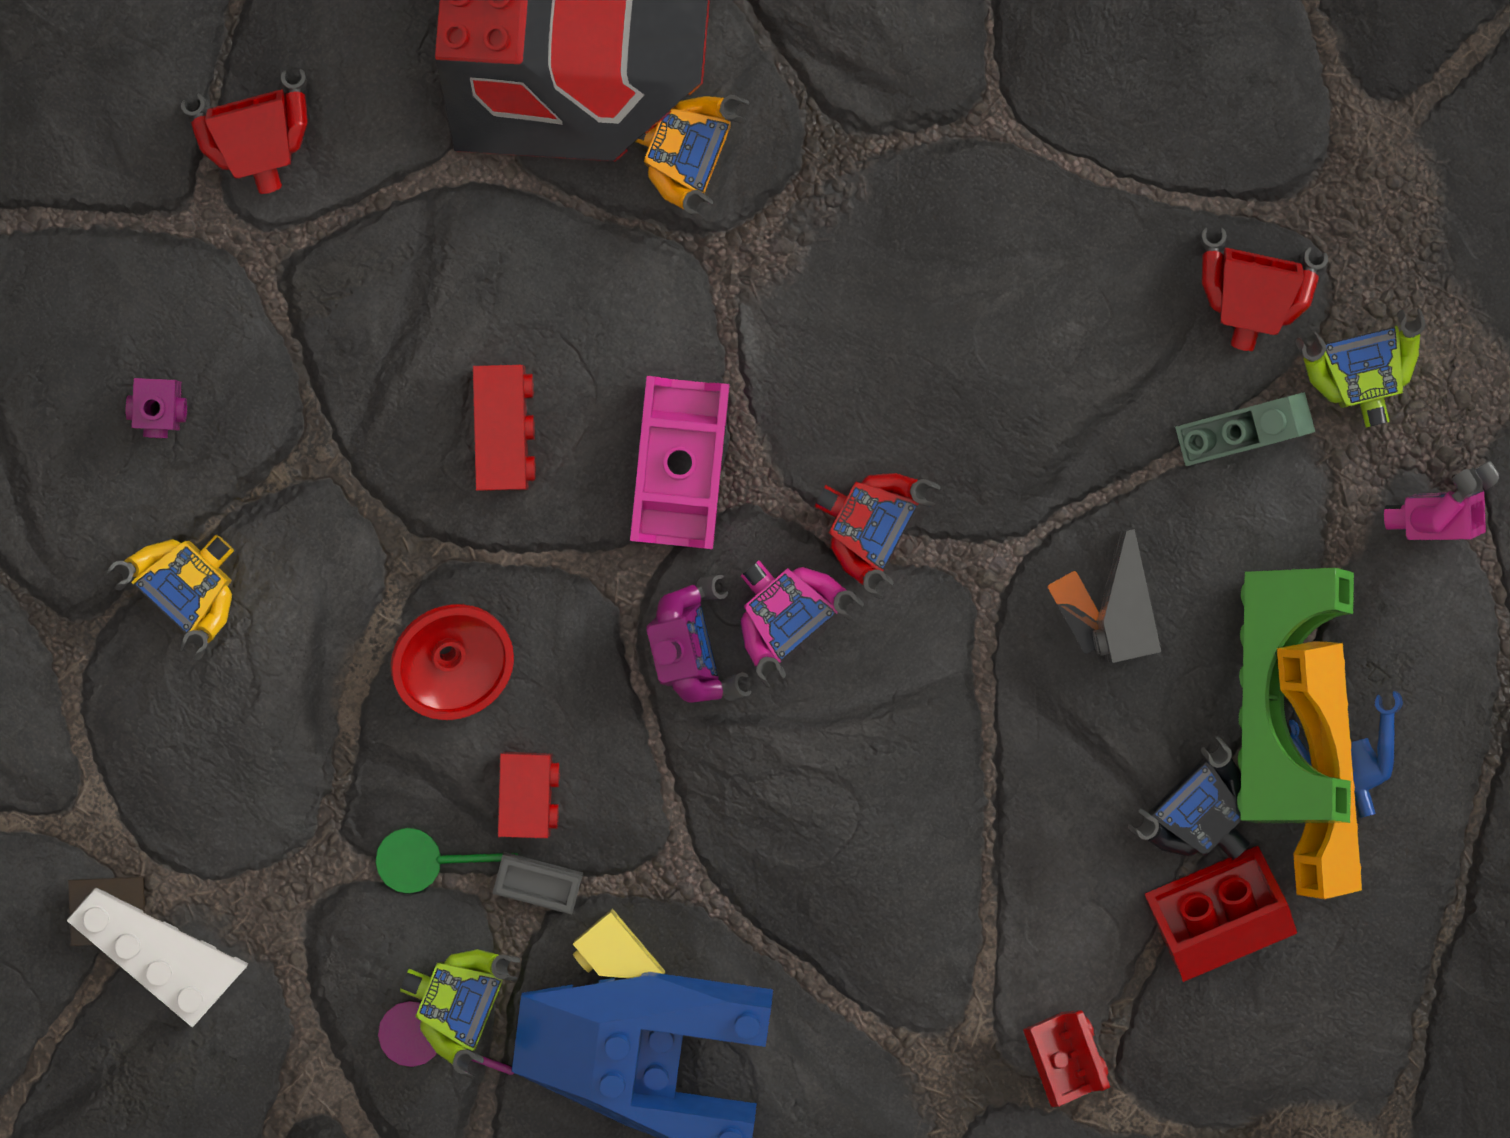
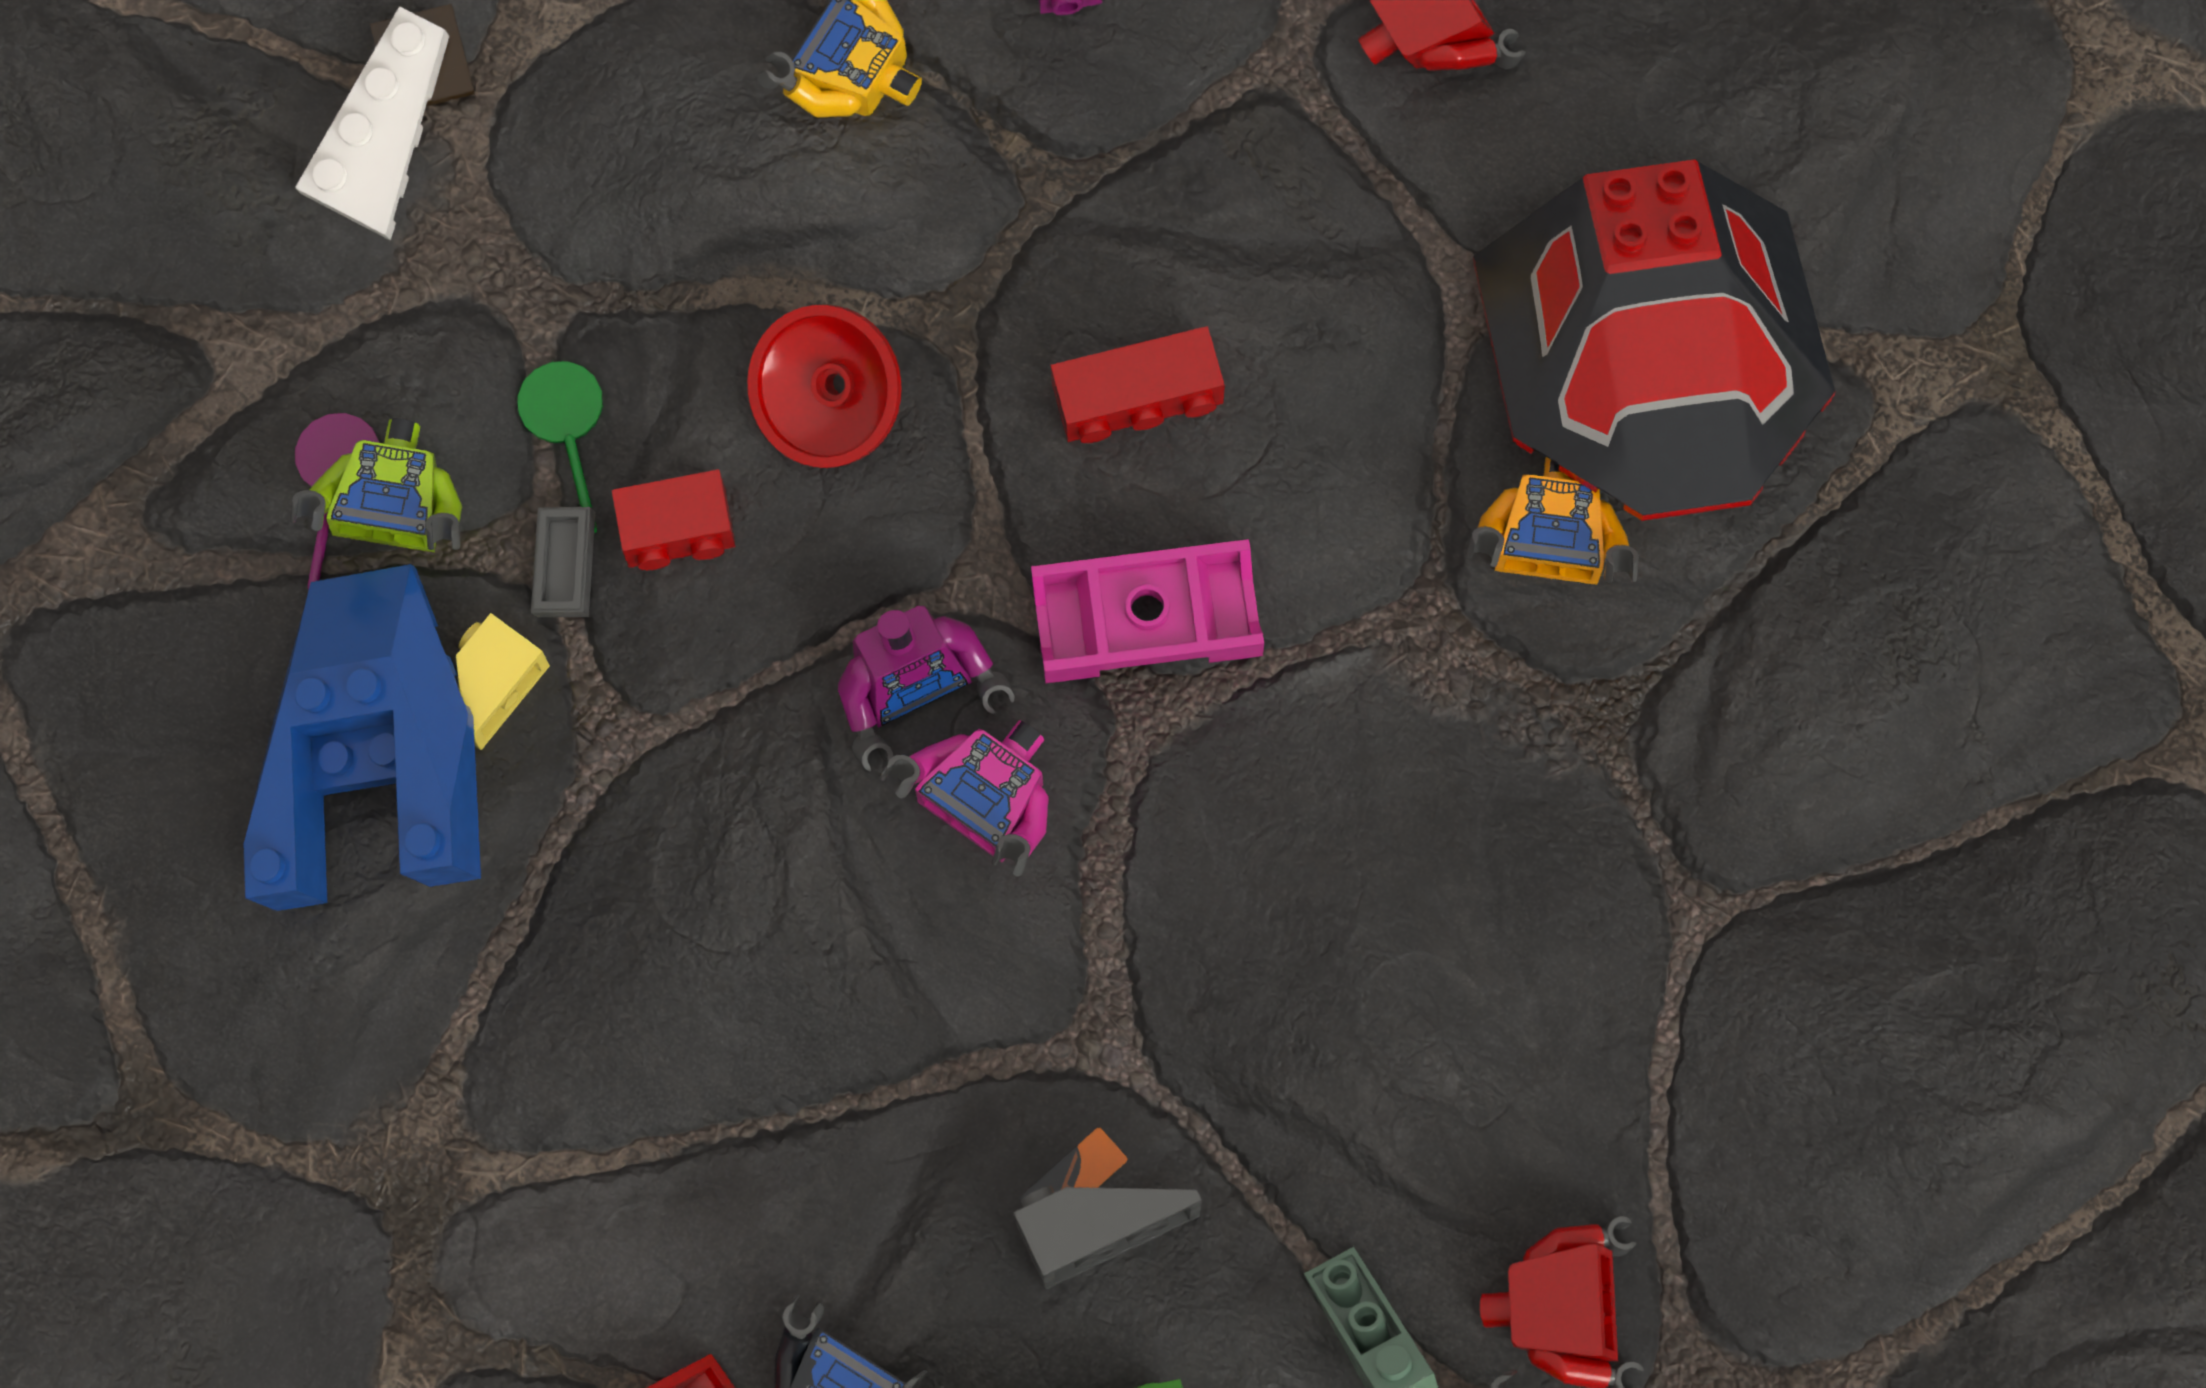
camera: 75 degrees right, 15 degrees down
(872, 522) = (1126, 871): torso -> none
(1067, 1057) = (465, 1295): red bracket -> none

